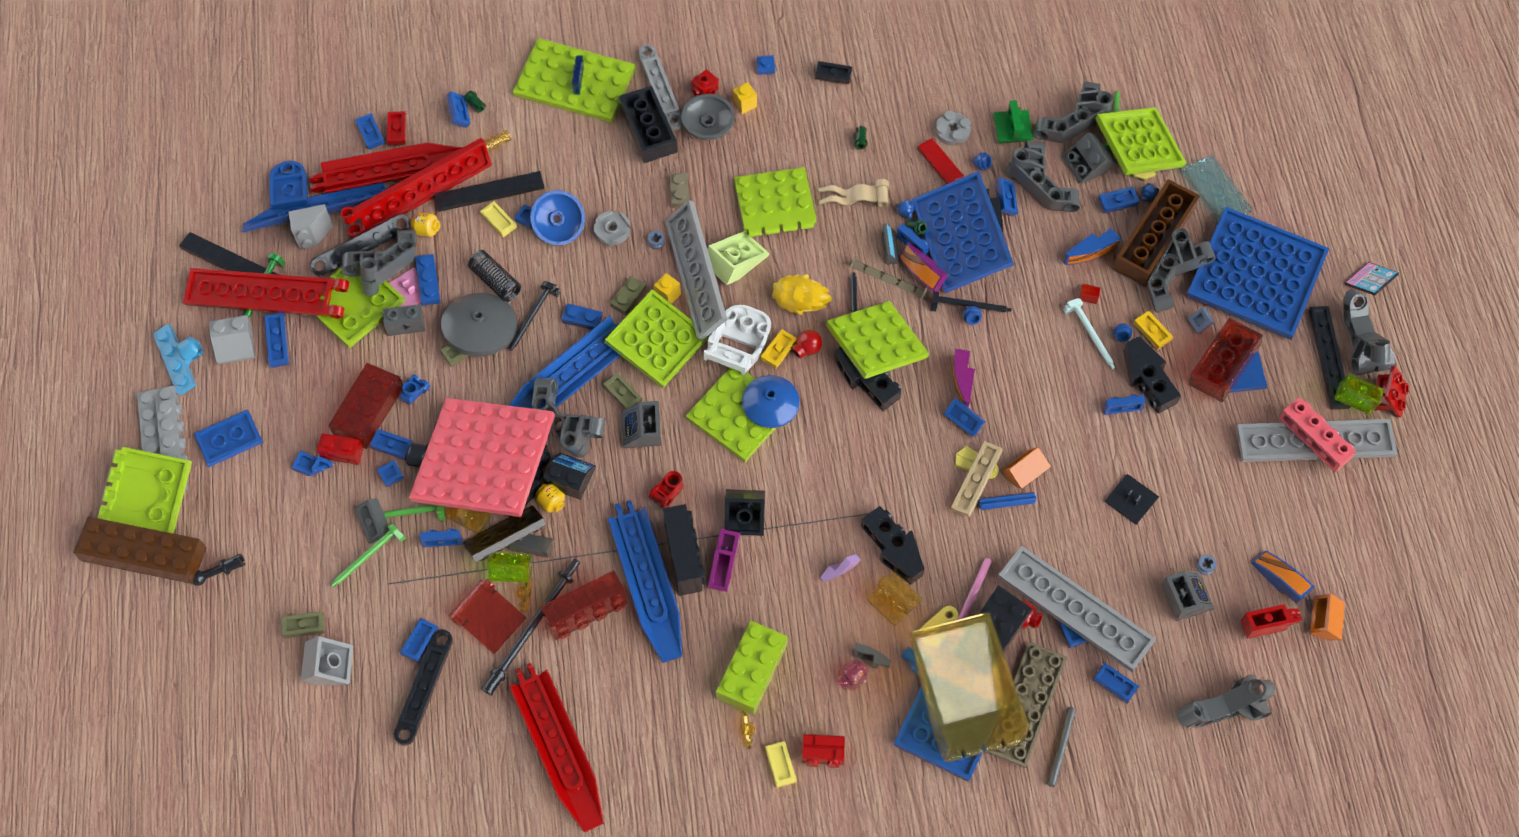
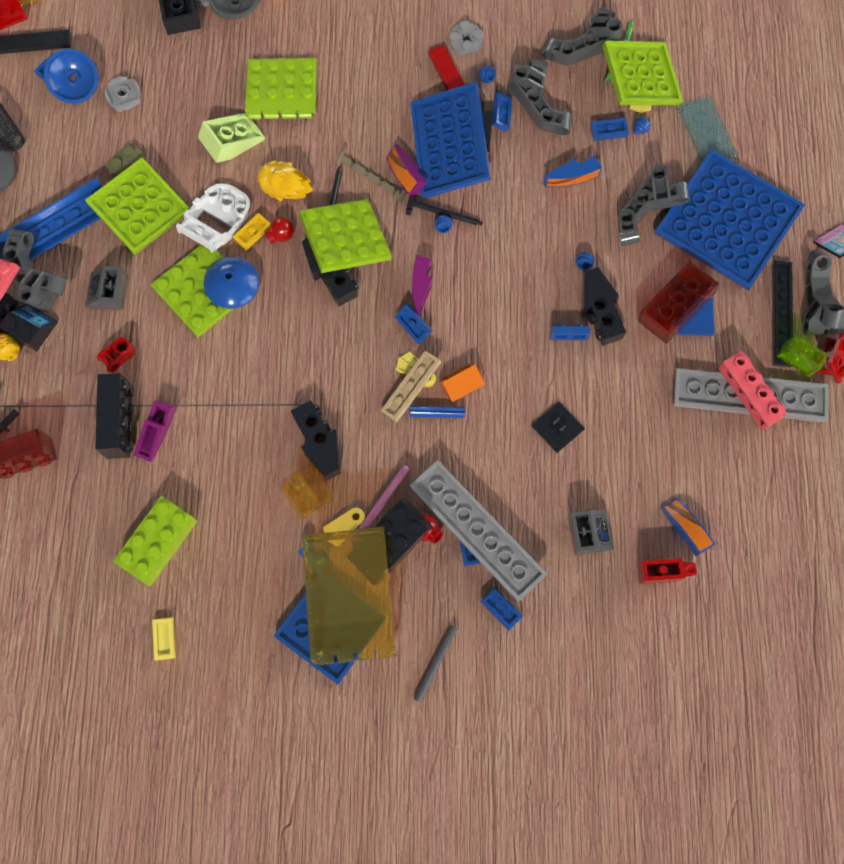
camera: 10 degrees right, 10 degrees up
(498, 219) = (21, 71): light yellow tile -> none
(548, 288) = (50, 143): black piece -> none
(581, 316) = (75, 174): blue plate -> none
(622, 391) = (96, 252): olive plate -> none
(648, 581) = (76, 440): blue hinge -> none
(656, 245) = (166, 111): sand blue bush -> none
(668, 288) = (159, 159): yellow brick -> none
(679, 189) = (194, 65): dark tan plate -> none
(696, 270) = (187, 145): light grey plate -> none
(745, 511) = (183, 386): black slope -> none
(747, 730) = (139, 600): clear yellow piece -> none
(823, 750) = (205, 632): red brick -> none
(836, 570) = (262, 455): lavender slope -> none
(852, 675) = (249, 562): clear pink head -> none
(859, 192) = (362, 89): tan flag -> none
(860, 141) = (375, 38): dark green pin -> none
(868, 653) = (276, 551): dark grey slope -> none
(890, 245) = (381, 144): dark grey slope -> none
(907, 235) = (398, 137): blue plate -> none
(908, 209) = (403, 111): blue plate -> none
(918, 227) = (409, 130): dark green pin -> none
(1013, 124) = (524, 42): green bracket -> none
(1035, 687) = (416, 612): dark tan plate -> none
(1075, 305) = (544, 228): light aqua piece -> none
(1089, 158) = (589, 84): dark grey slope -> none
(1089, 293) = (561, 218): red slope -> none
(1153, 330) = (614, 262): yellow plate -> none
(1154, 232) = (629, 172): reddish brown brick -> none
(1201, 320) = (663, 259): sand blue plate -> none
(1204, 570) = (612, 508): sand blue bush -> none
(1243, 698) = (623, 645): dark grey connector -> none
(1327, 617) = (723, 574): orange brick -> none

